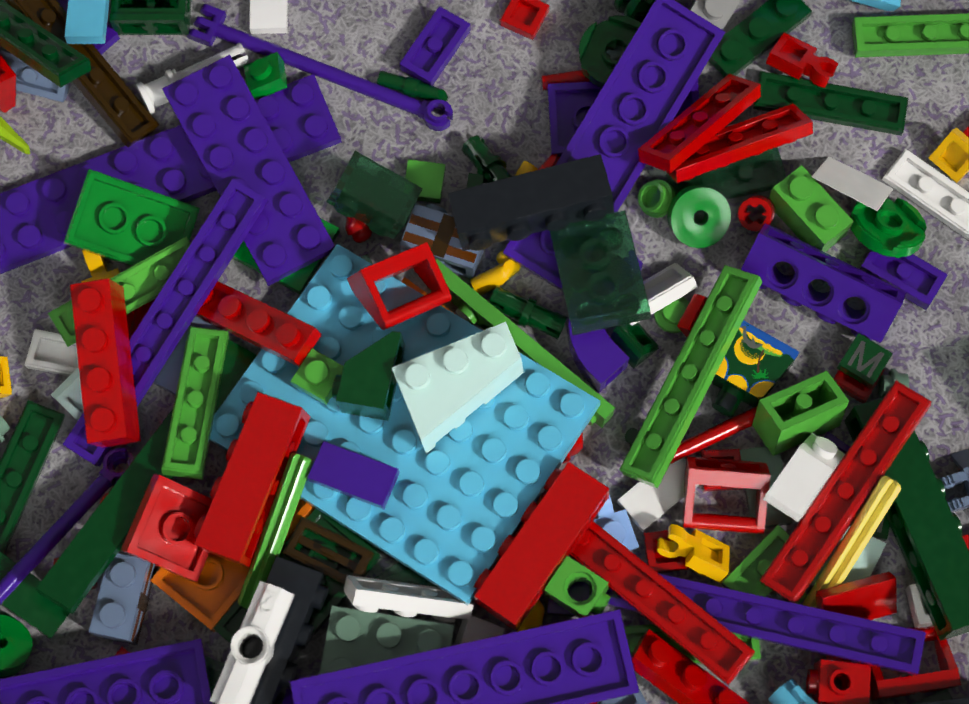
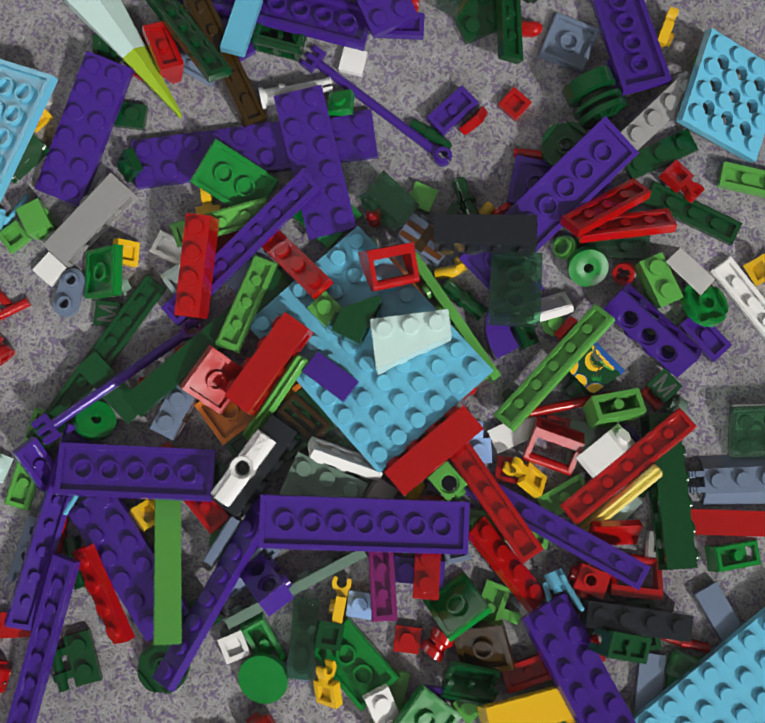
camera: 15 degrees right, 10 degrees up
(471, 53) = (474, 121): none -> red tile

